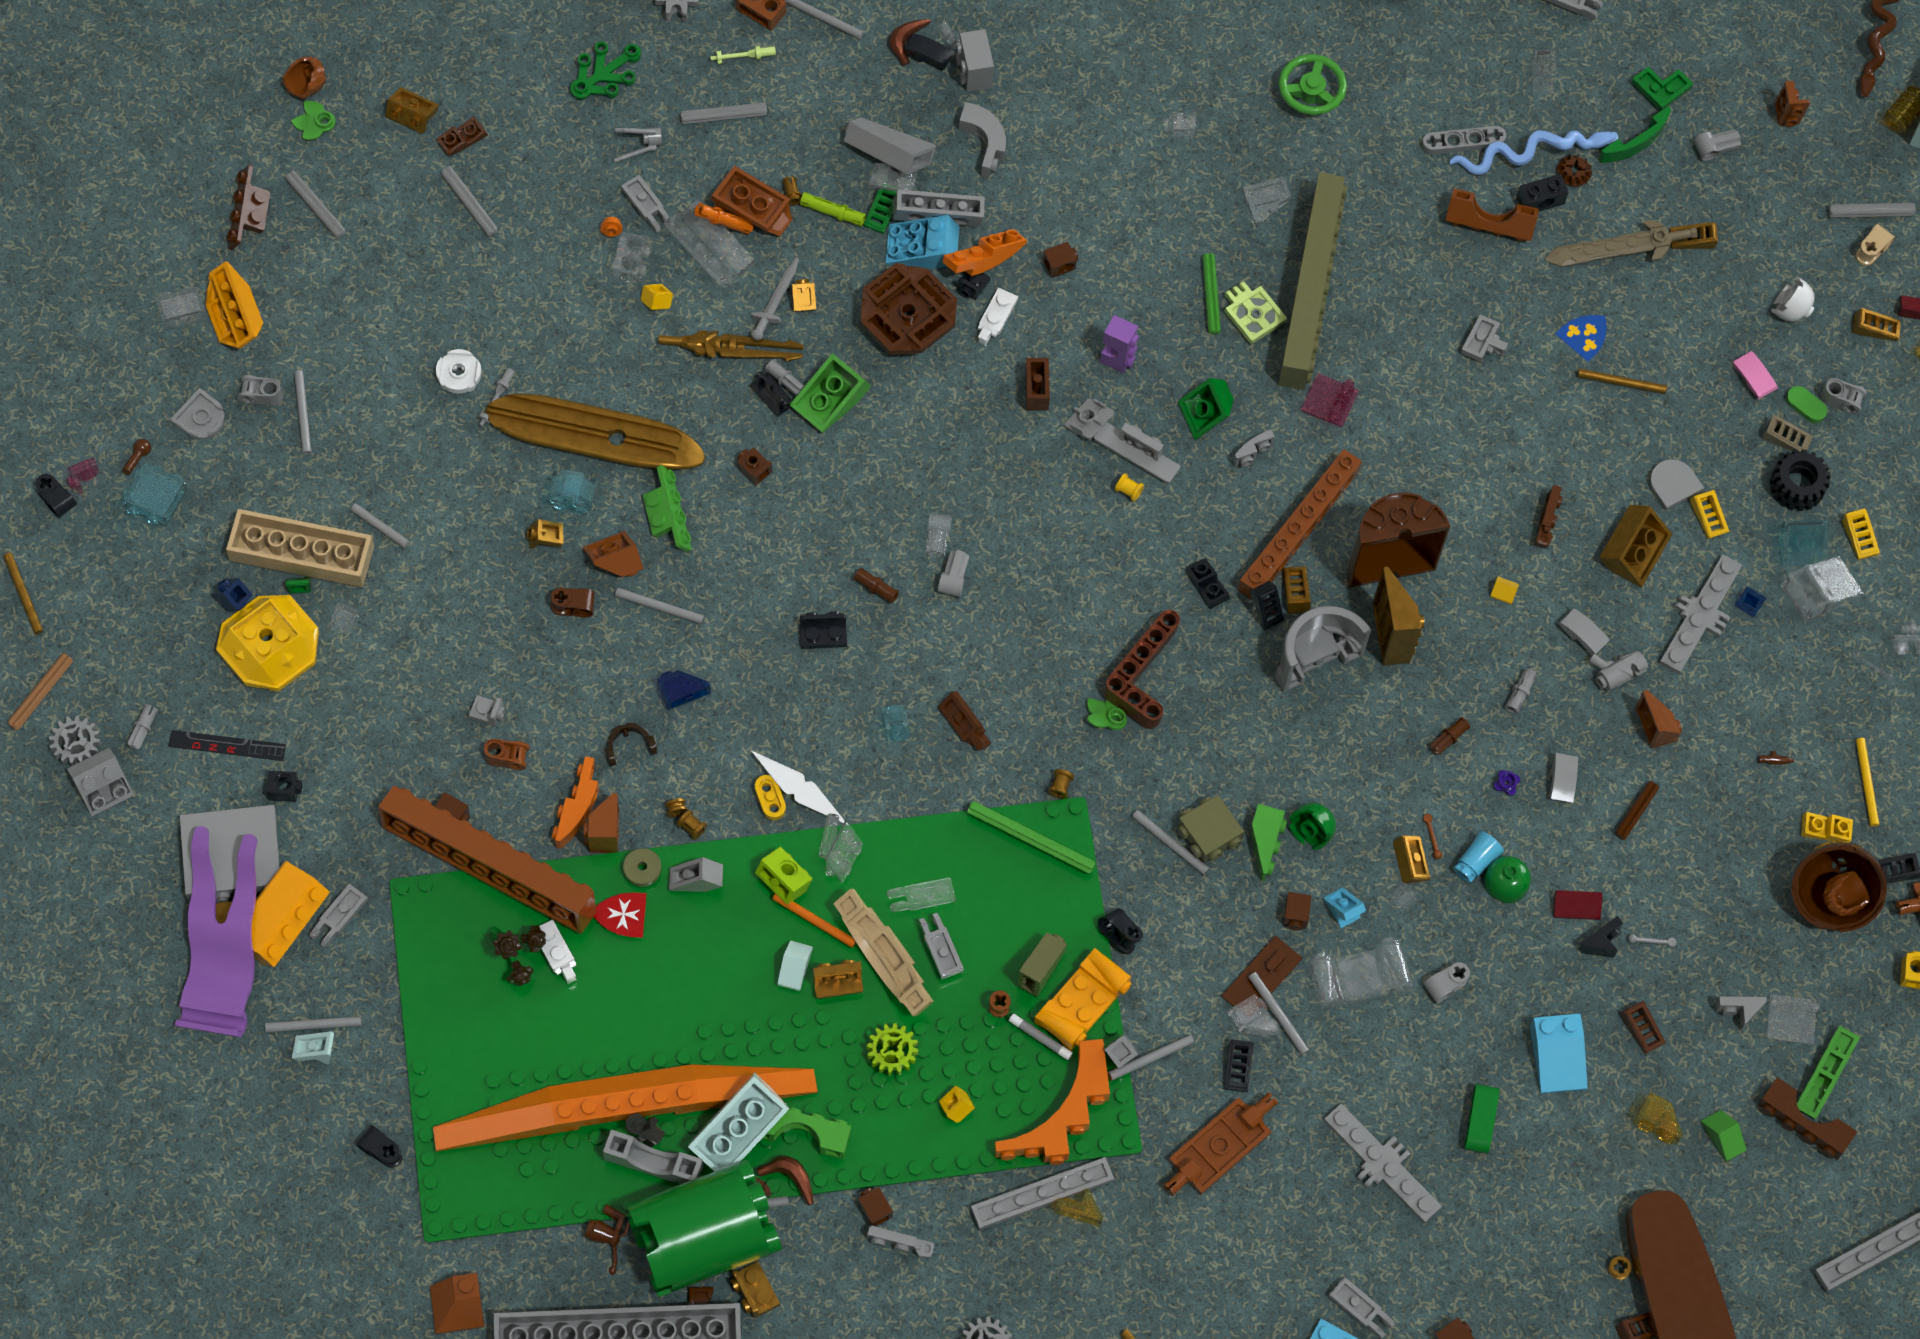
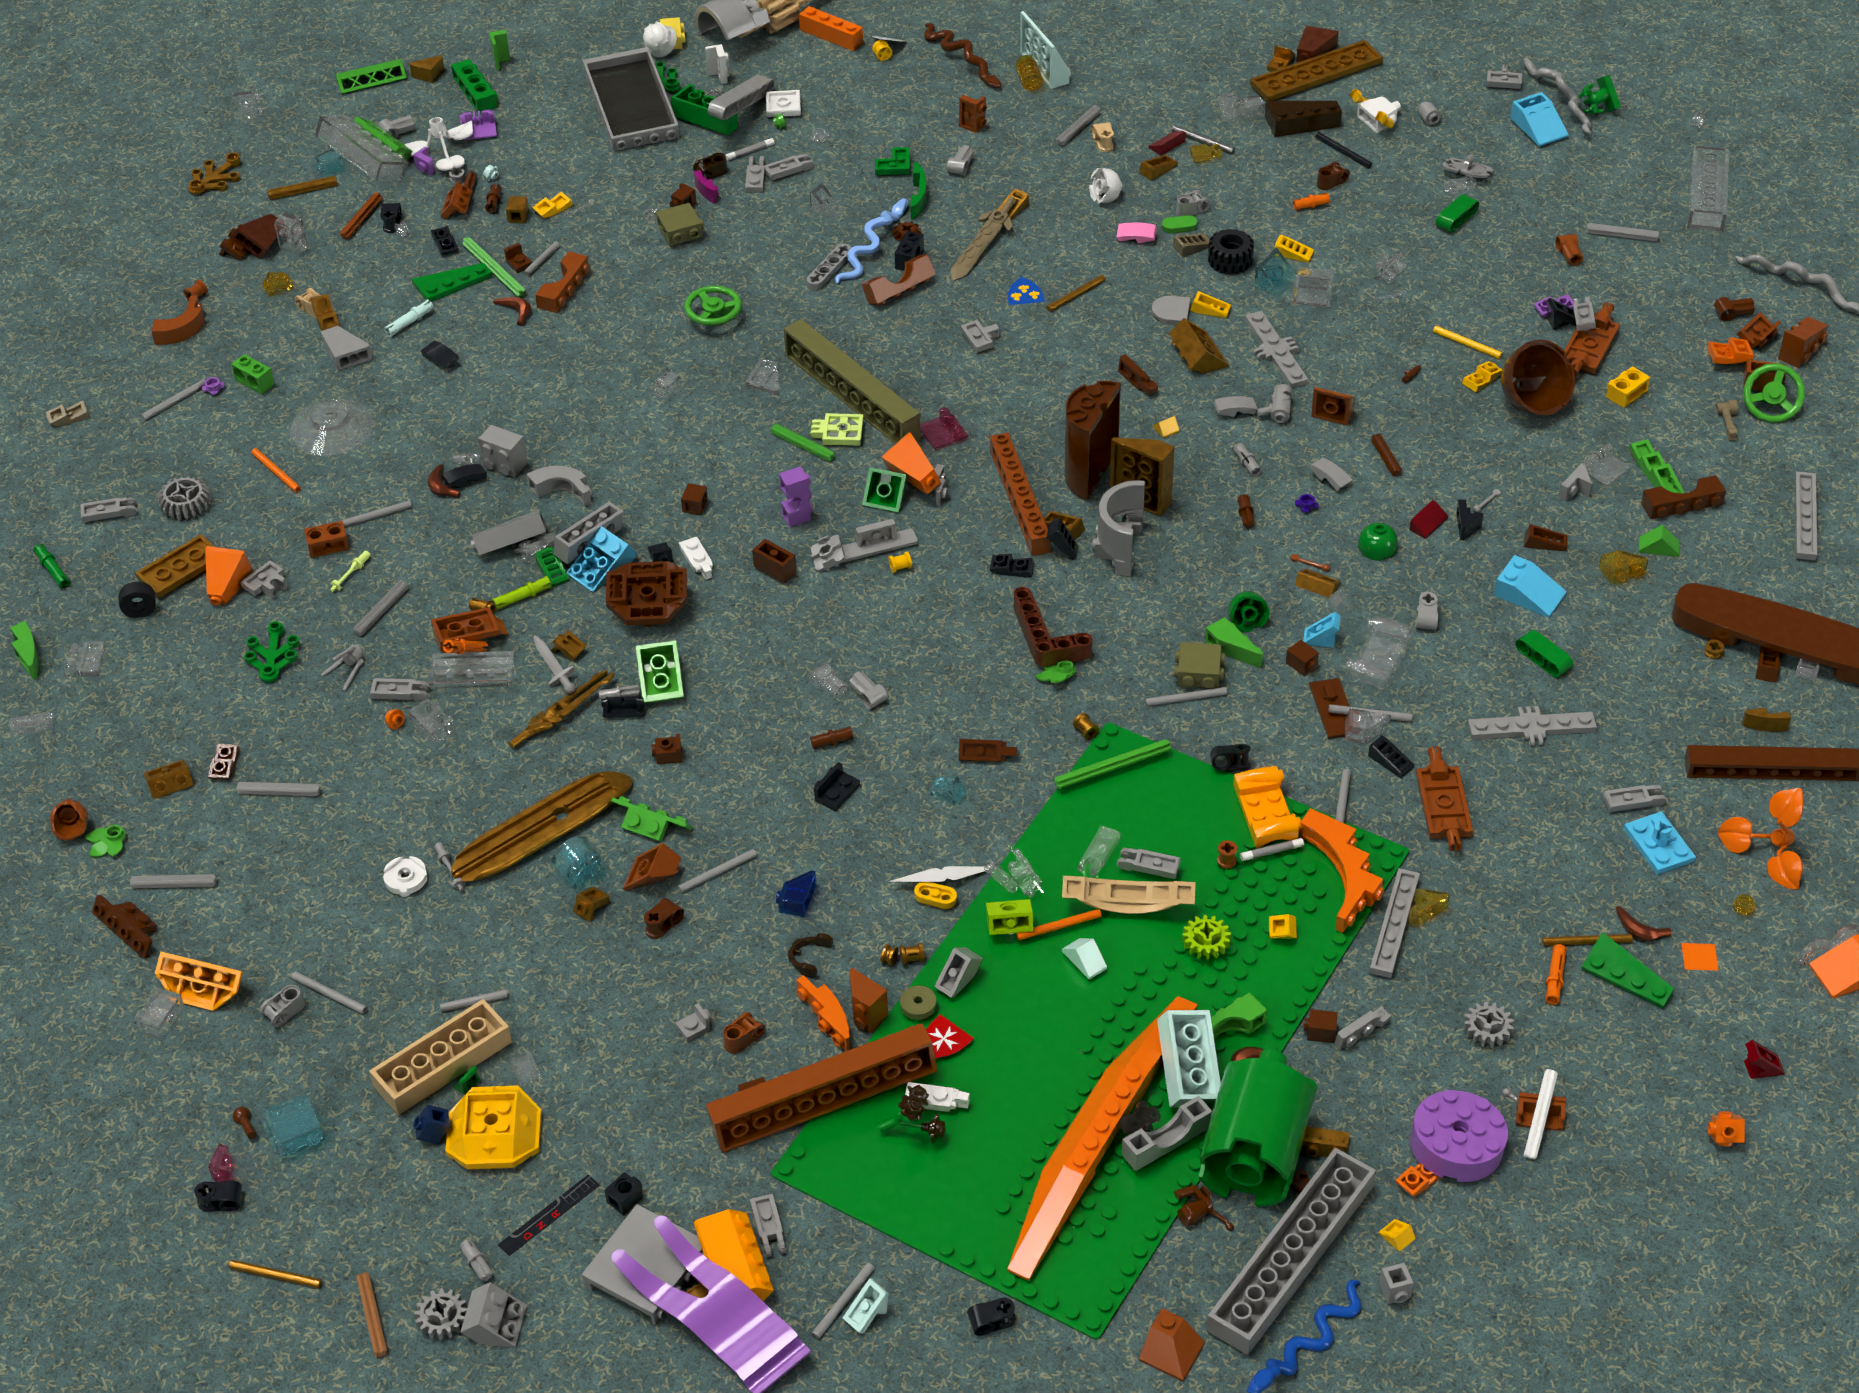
camera: 45 degrees left, 20 degrees down
(200, 416) = (259, 1060): light grey tile -> none
(656, 296) = (476, 727): yellow slope -> none
(838, 979) = (1121, 935): pearl gold bracket -> none
(989, 253) = (649, 530): orange slope -> none
(1041, 964) = (1220, 812): olive slope -> none
(1121, 1050) = (1328, 803): light grey brick -> none
(1251, 410) = (909, 459): none -> orange slope
(1478, 856) = (1348, 543): medium azure plant -> none
(1751, 601) = (1289, 321): clear blue slope -> none
(1845, 894) = (1543, 386): dark orange hair -> none

